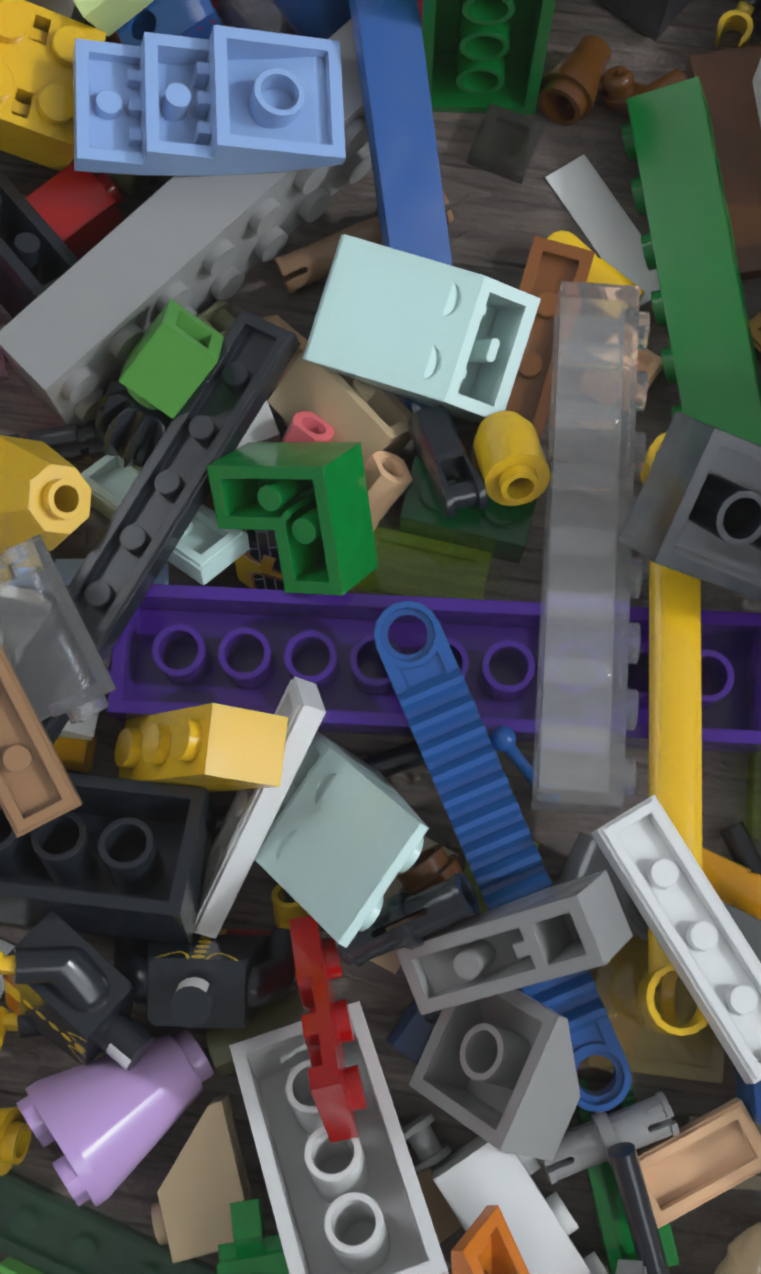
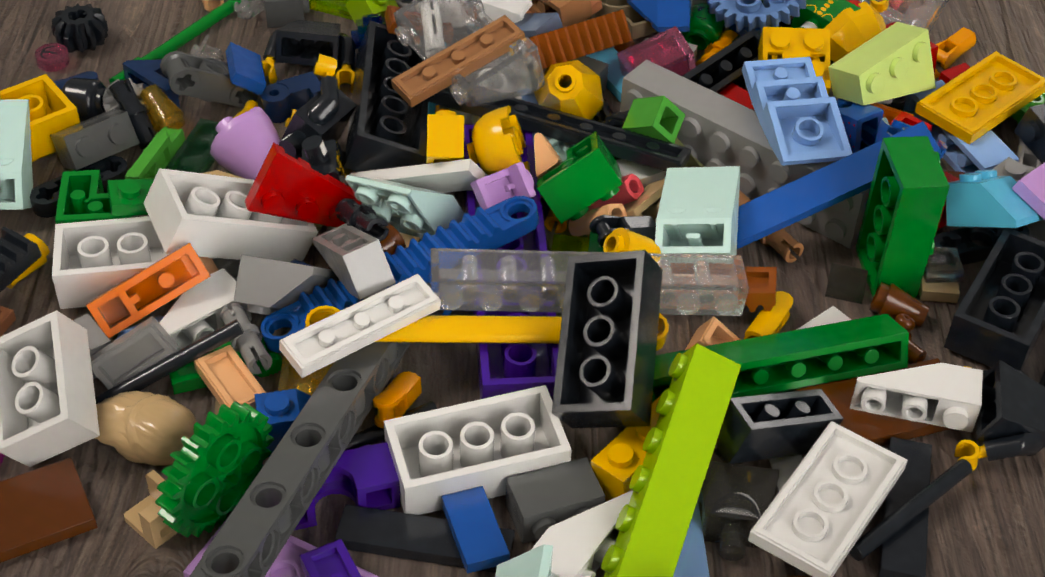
camera: 80 degrees right, 35 degrees down
(232, 647) = (497, 141): none -> yellow cylinder
(248, 562) = (545, 155): none -> light nougat slope
(342, 655) = (503, 185): none -> lavender bracket

